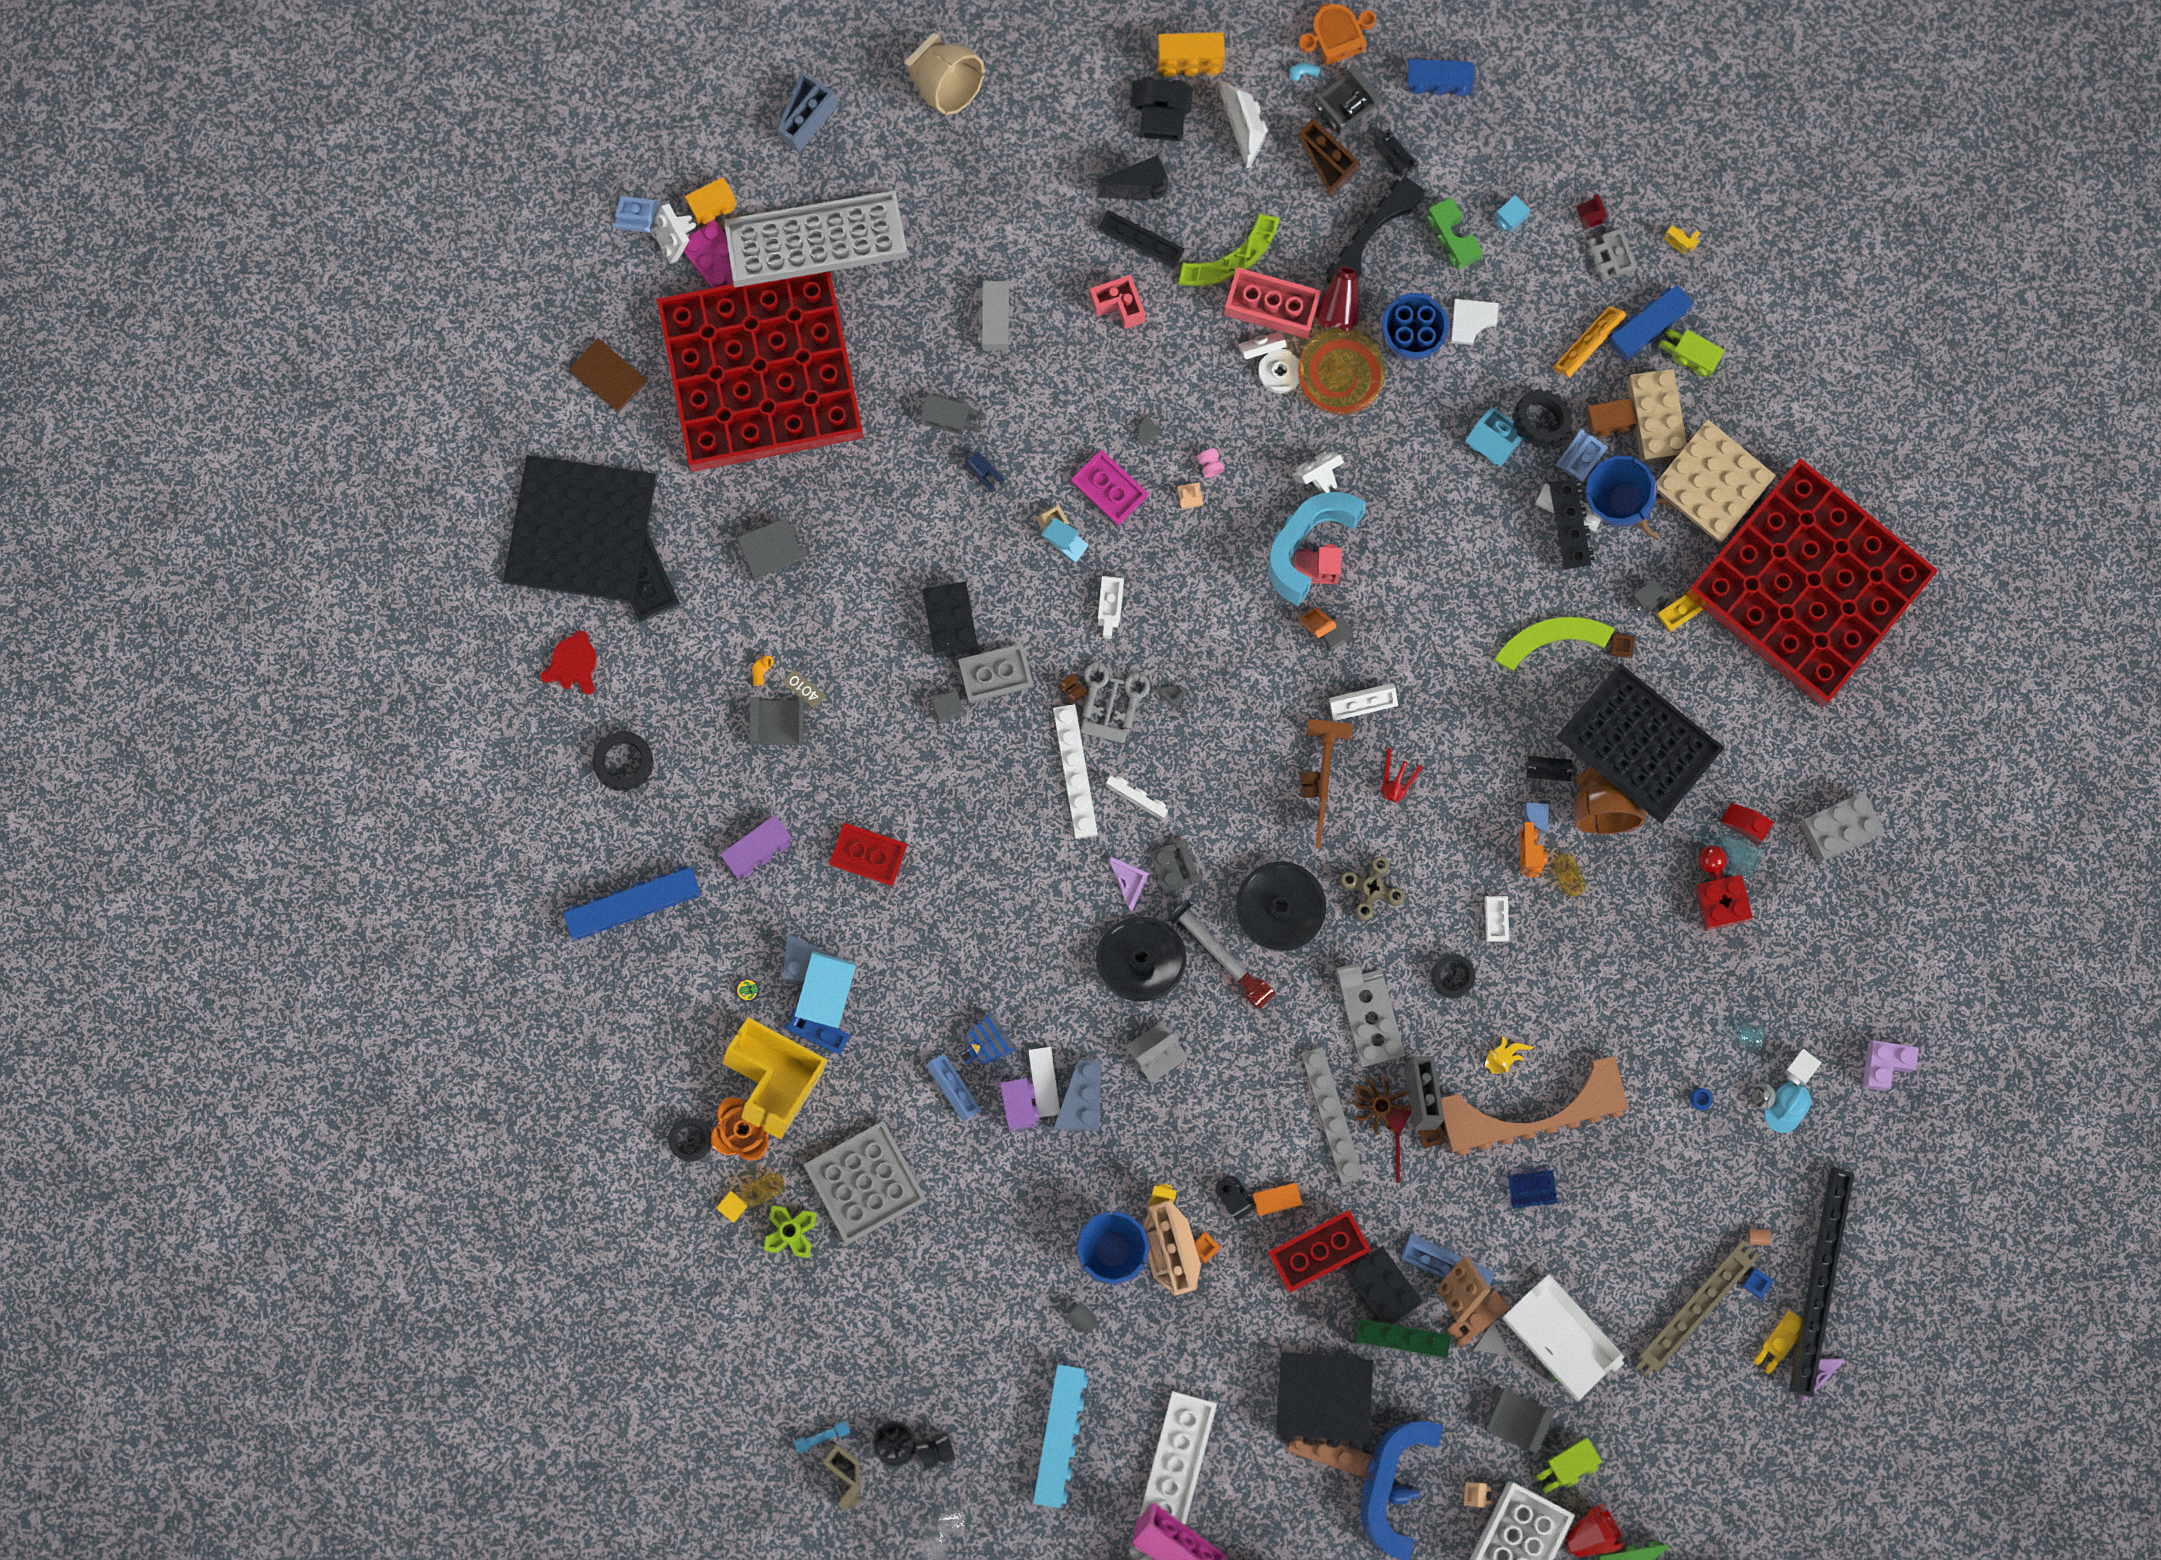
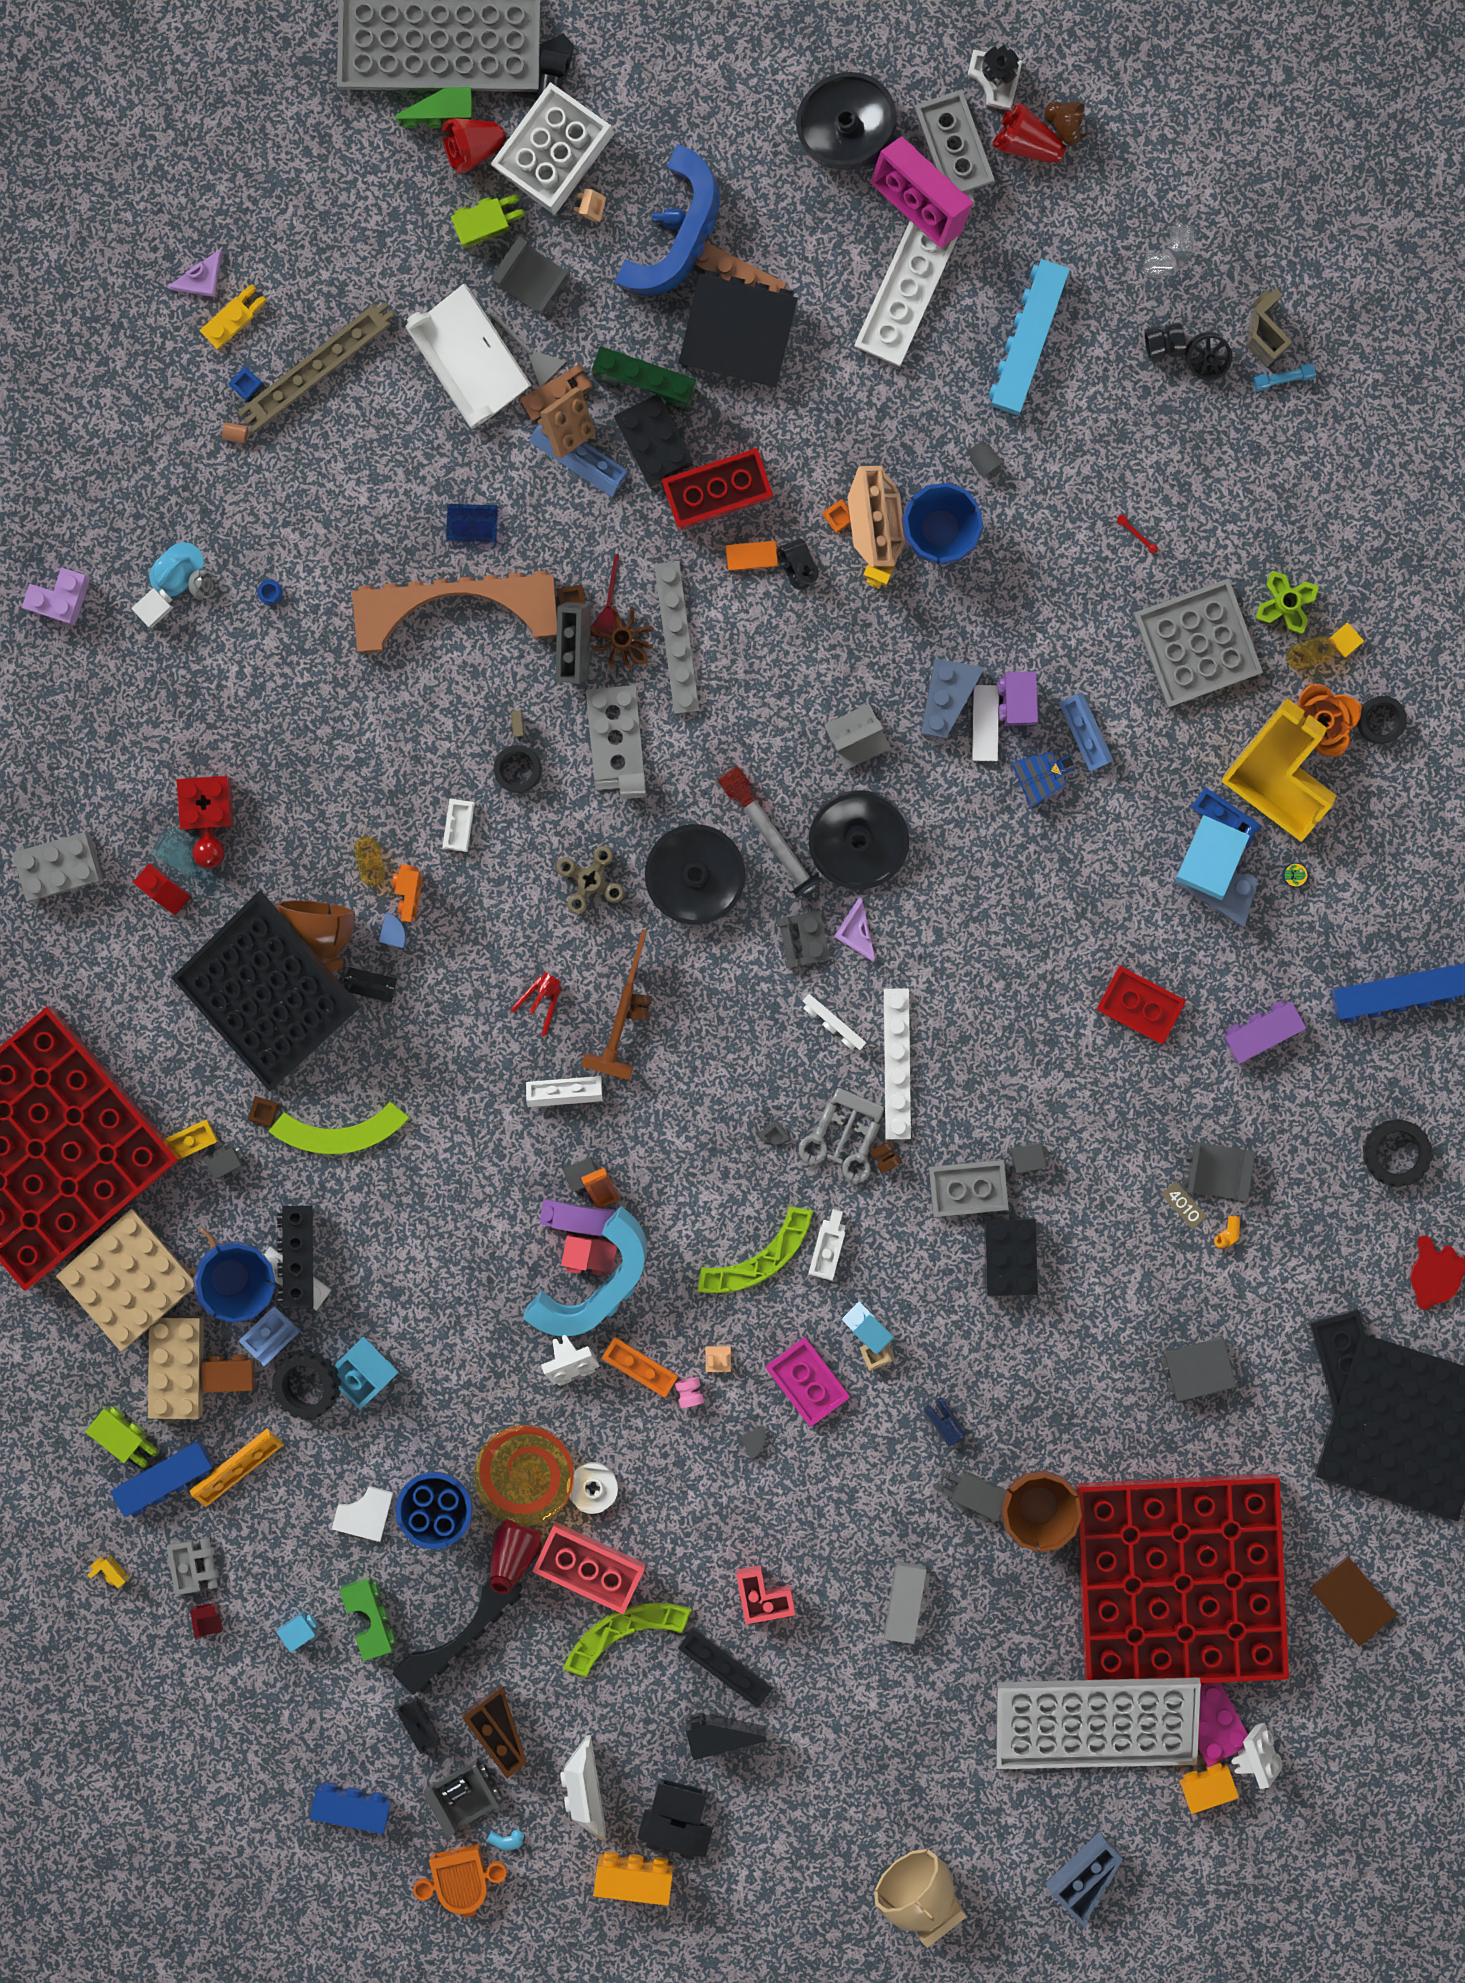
camera: 165 degrees left, 10 degrees up
(635, 214) = (1297, 1785): light blue plate -> none
(891, 406) = (1041, 1511): none -> dark orange plate
(948, 1283) = (1122, 520): none -> red hinge
(1164, 581) = (763, 1264): none -> lime tile
(1257, 478) = (639, 1366): none -> orange plate
(1262, 344) = (608, 1521): white plate -> none
(1332, 592) = (574, 1217): none -> medium lavender arch
(1460, 1015) = (517, 724): none -> dark tan tile
(1501, 1058) = (480, 671): yellow piece -> none
(1752, 1036) = (202, 652): clear light blue wheel -> none
(1821, 1282) = (176, 371): black plate -> none

